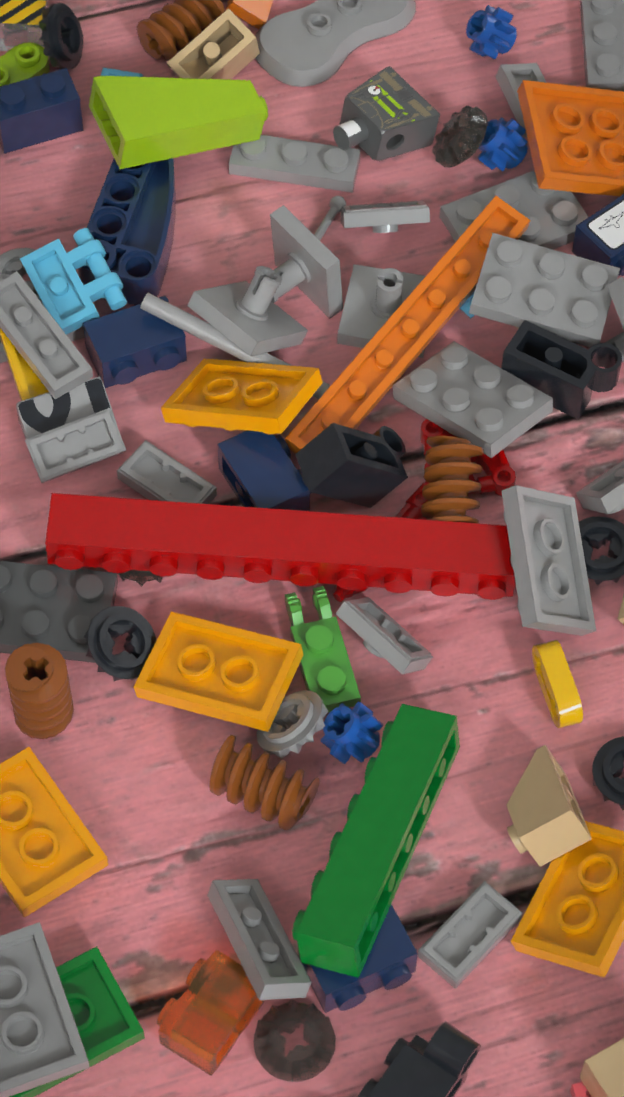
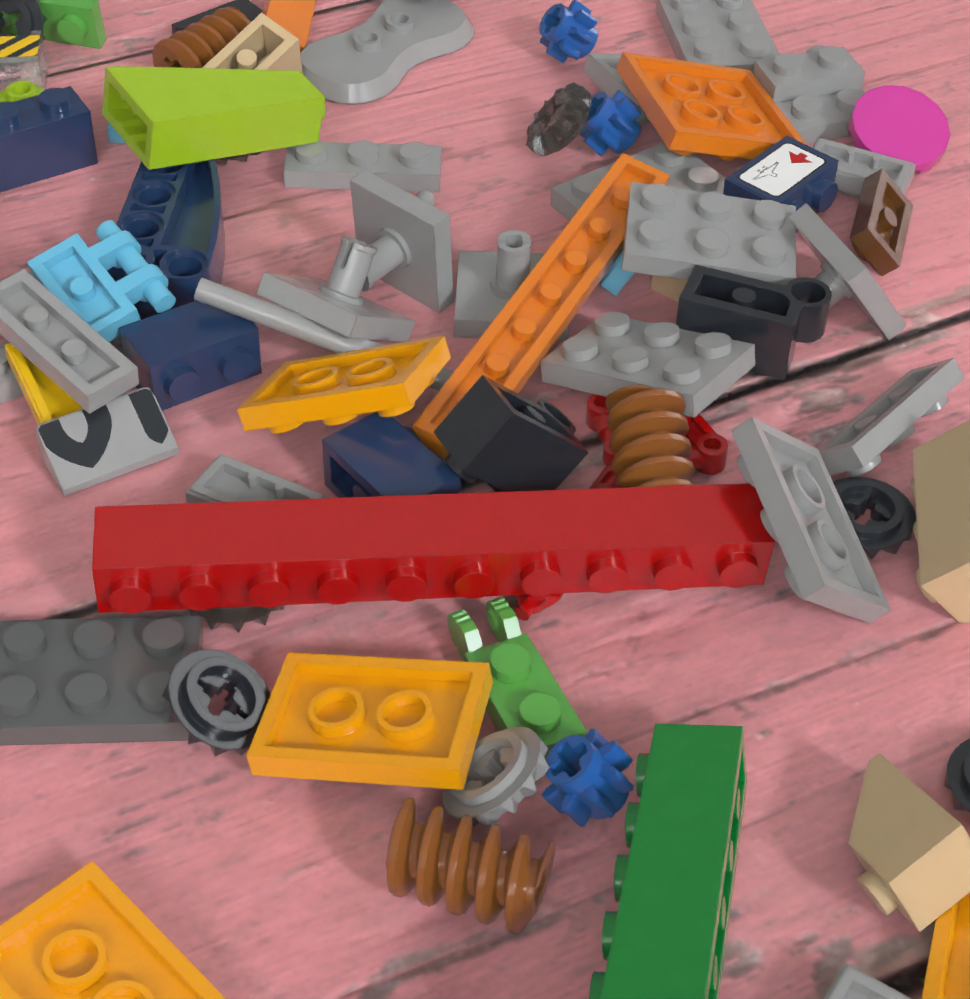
camera: 10 degrees left, 15 degrees down
(39, 690) = (101, 772): dark orange piece -> none
(61, 36) = (60, 63): black gear -> none
(75, 445) = (123, 470): light grey plate -> none
(384, 216) = (490, 200): light grey plate -> none
(384, 635) = (600, 649): light grey plate -> none
(386, 118) = (468, 110): dark grey torso -> none
(557, 684) = (863, 680): yellow beam -> none

